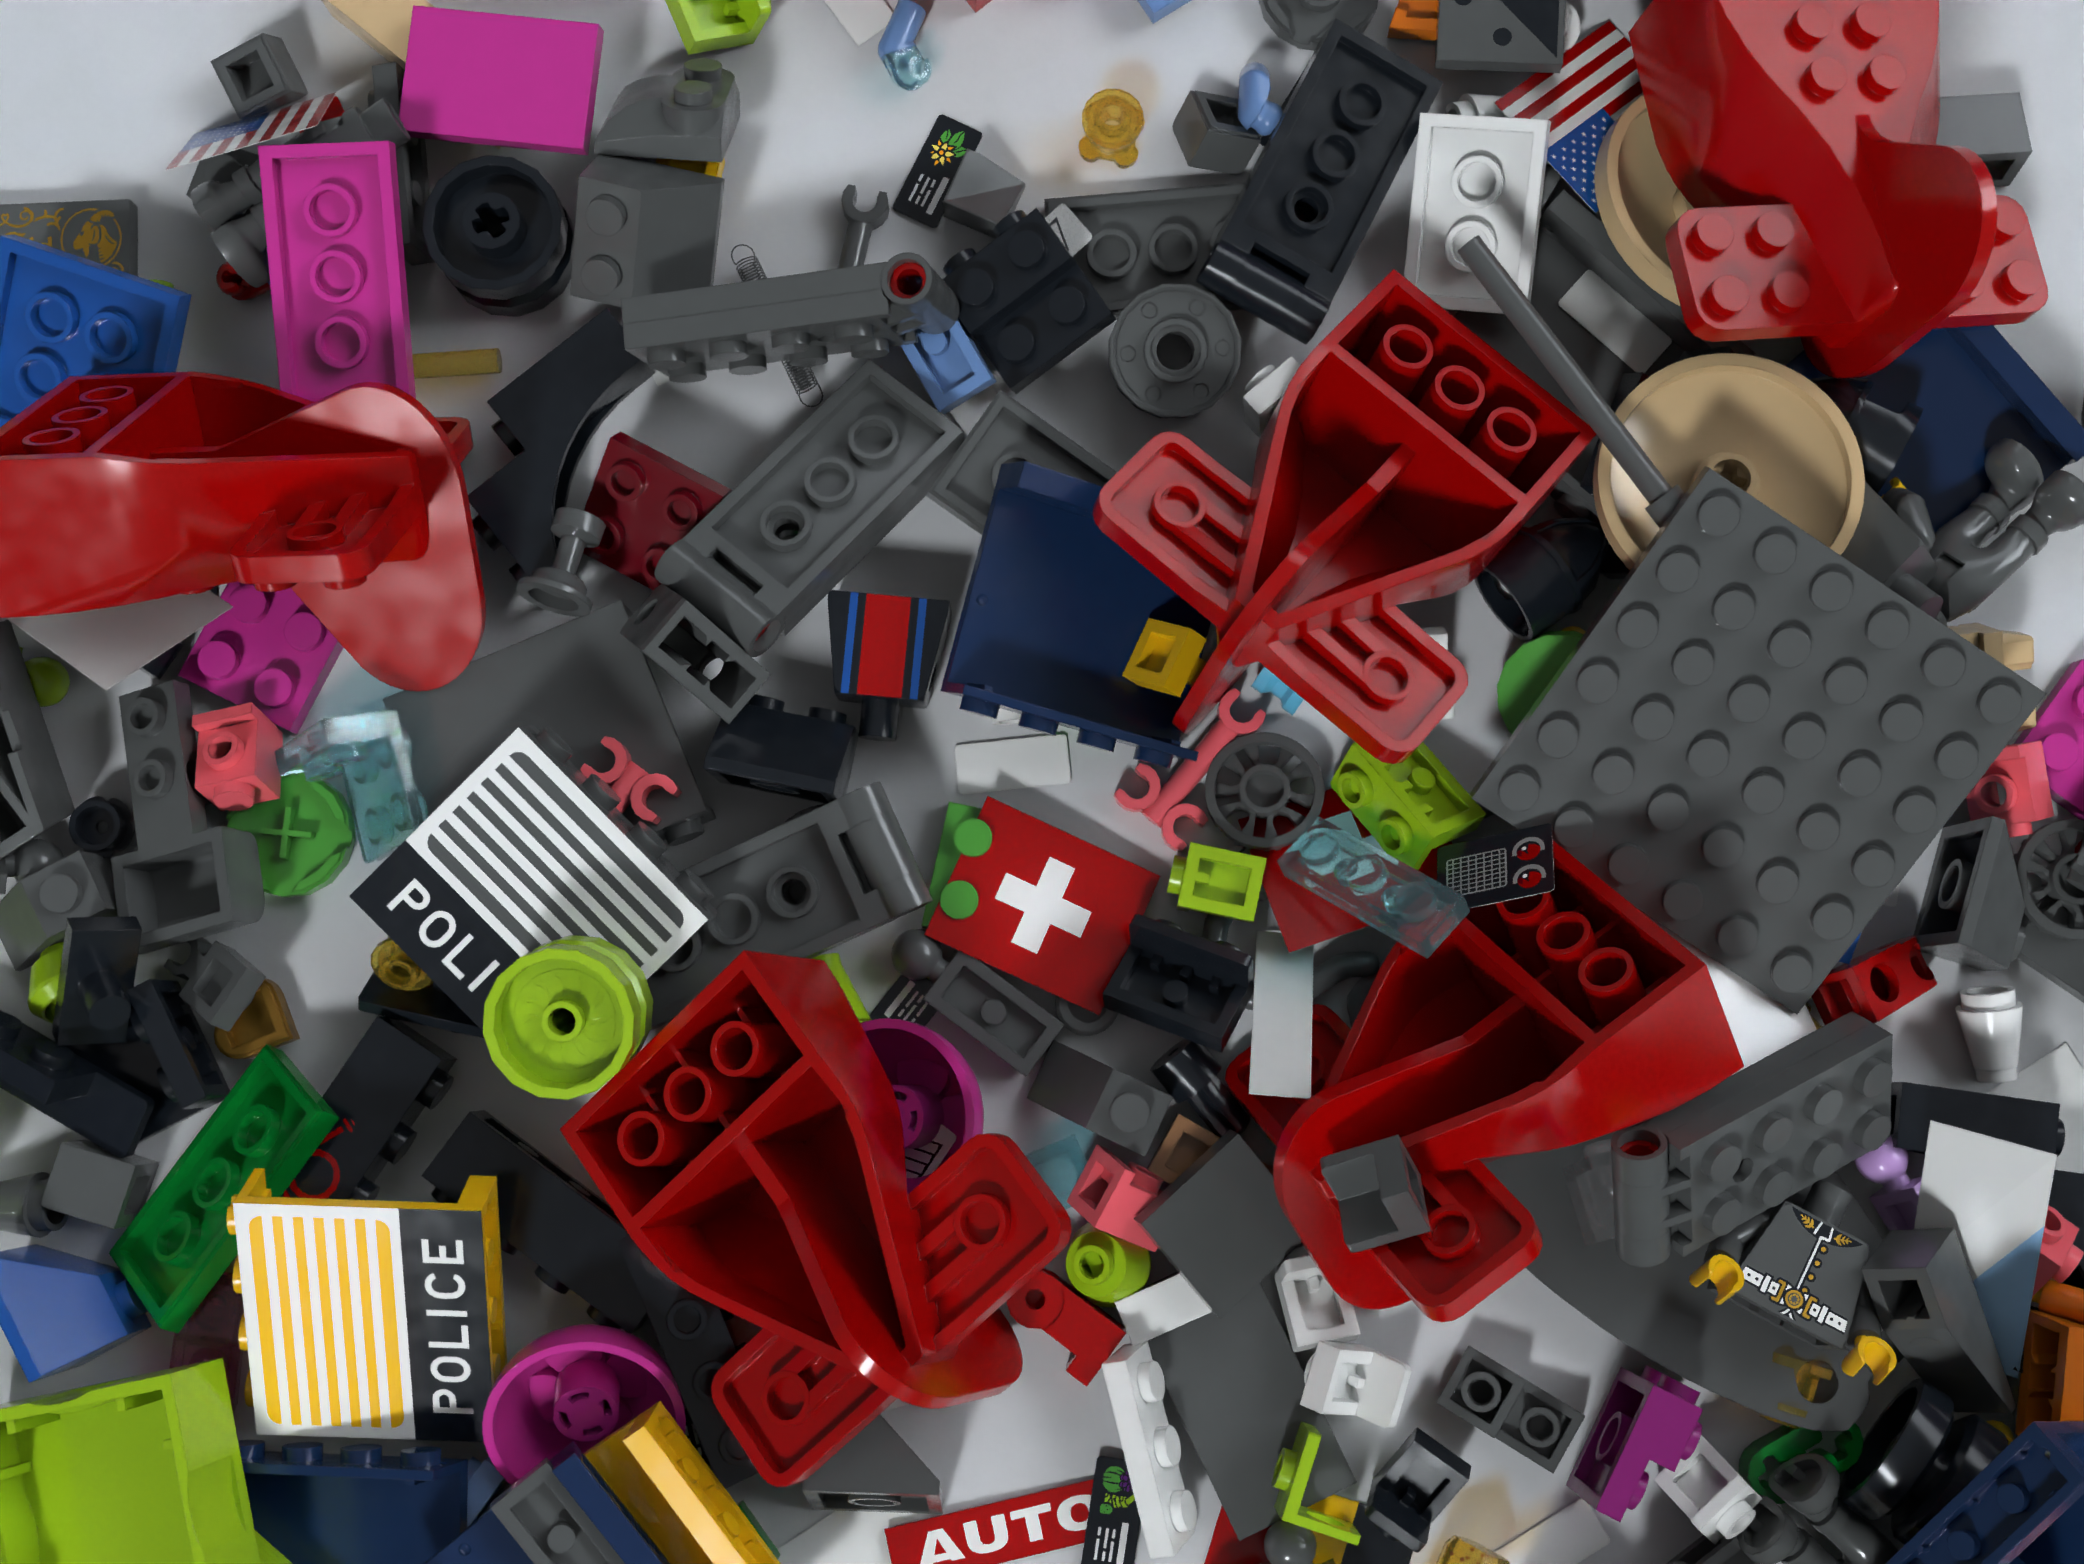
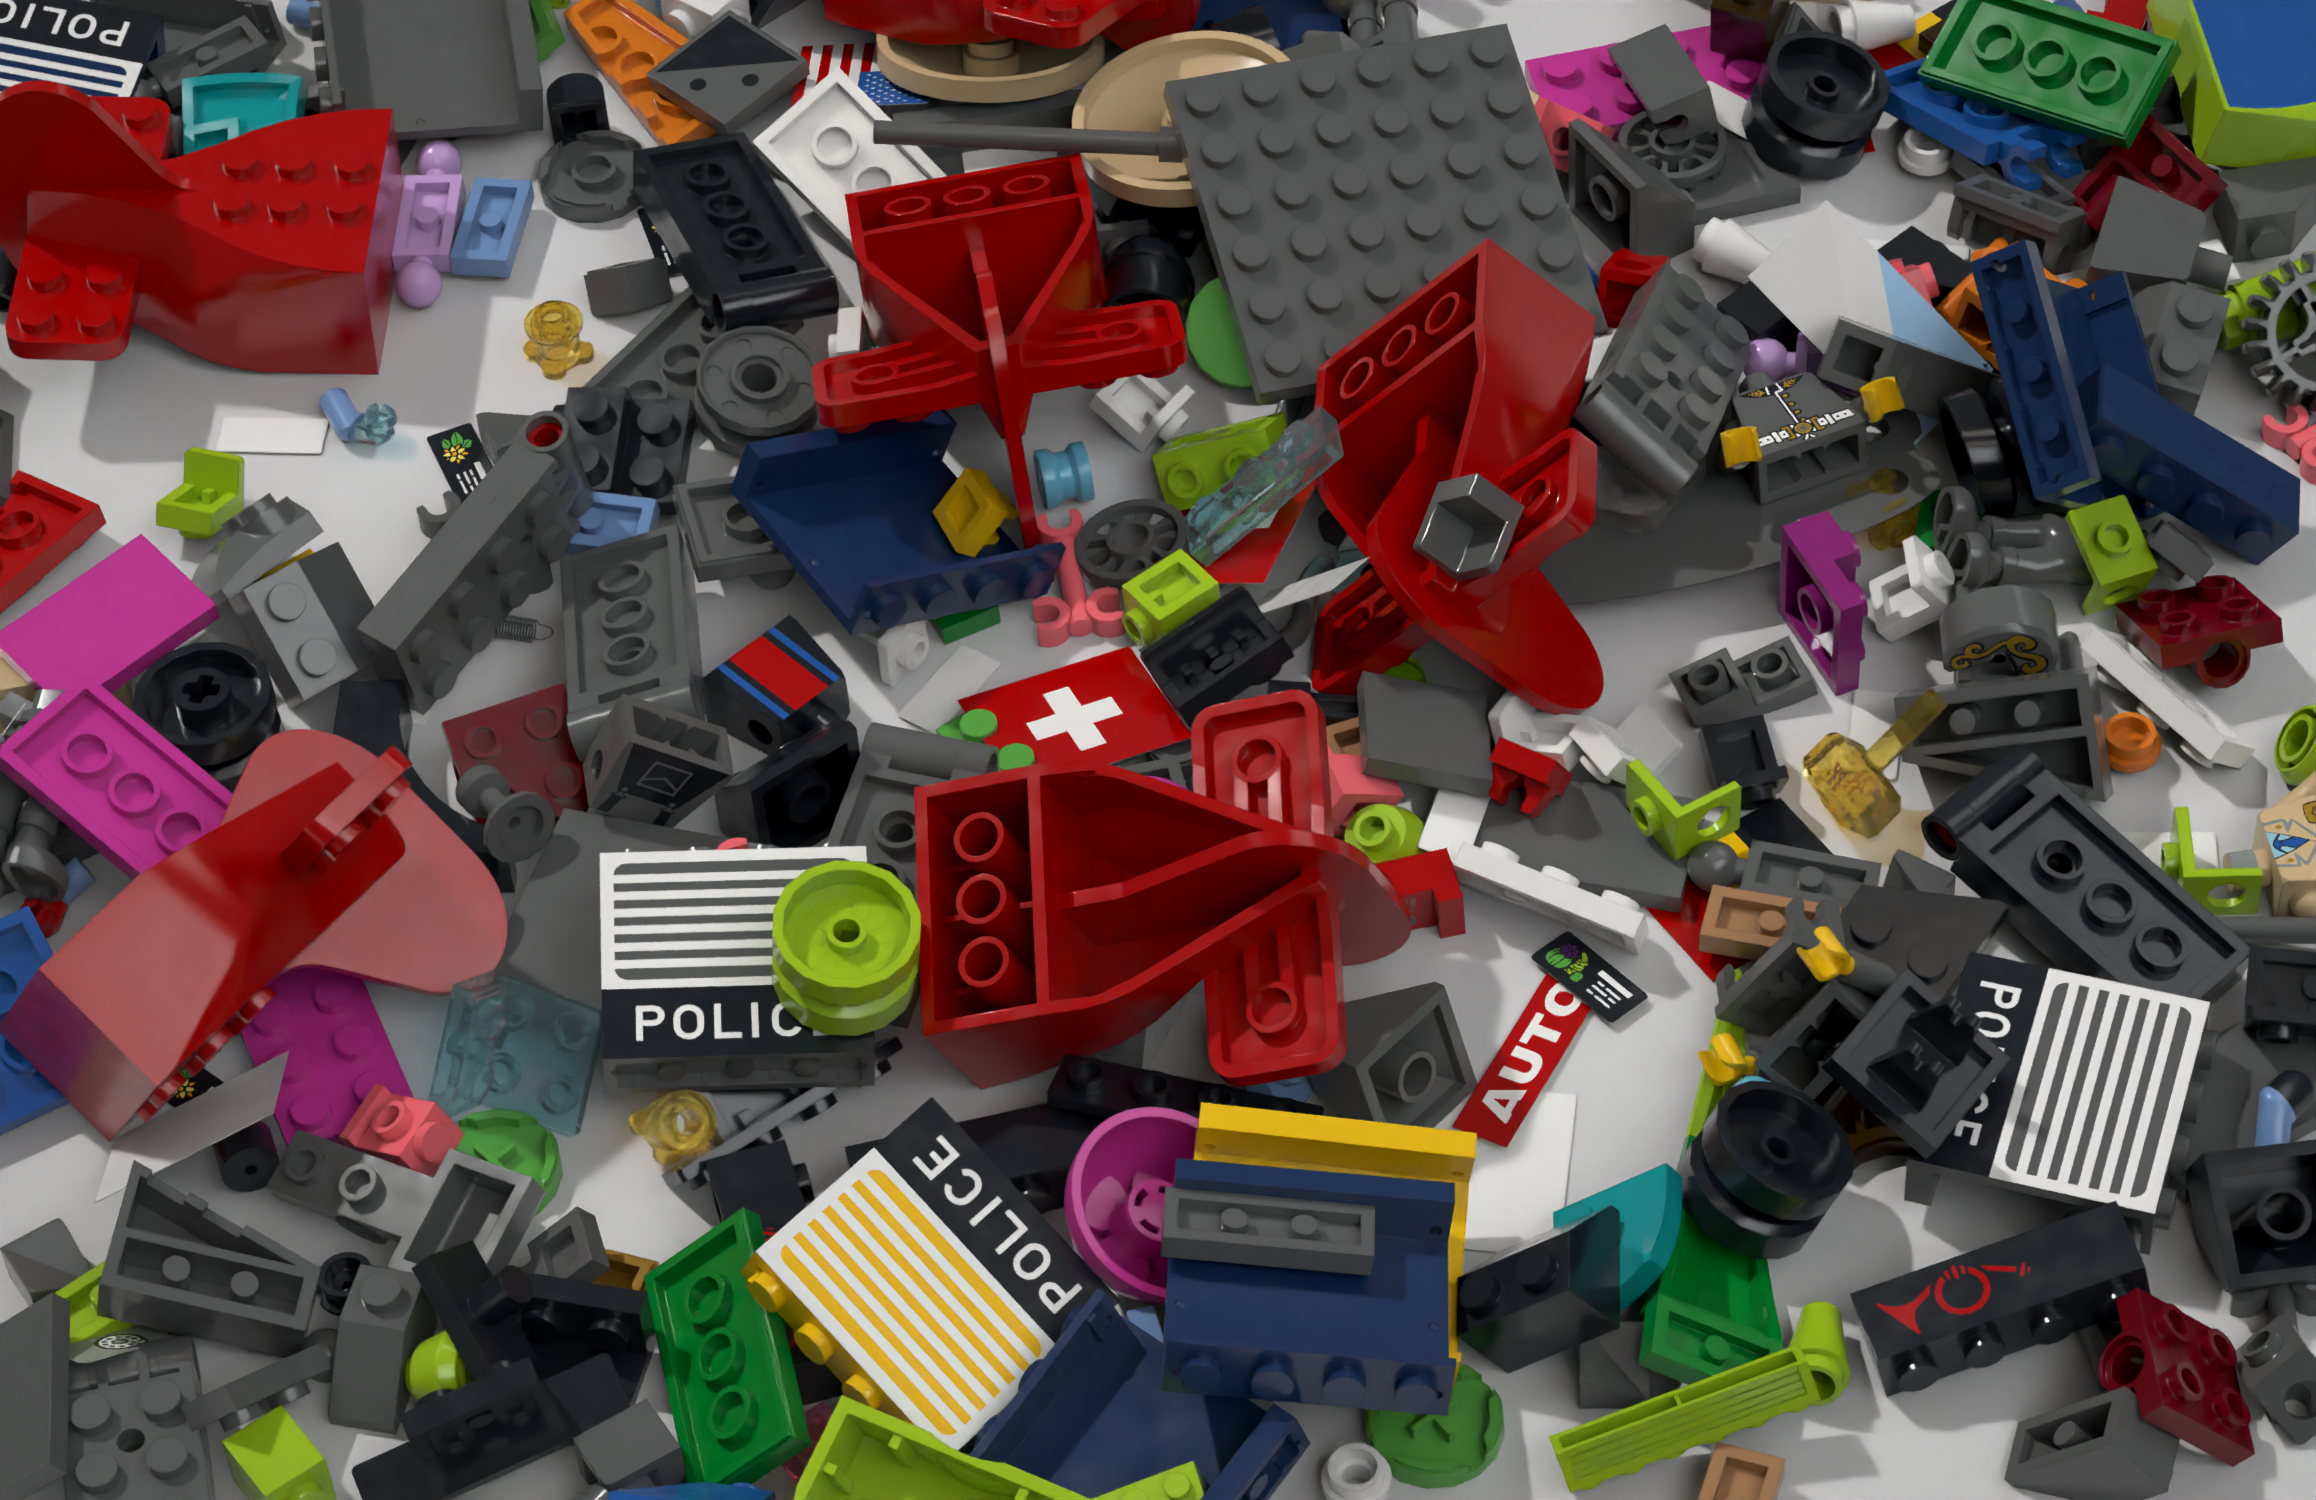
camera: 45 degrees left, 35 degrees down
(1253, 106) = (632, 239): medium blue arm -> none
(1258, 1335) = (1518, 765): none -> red tile
(1499, 866) = (1330, 383): black sticker -> none

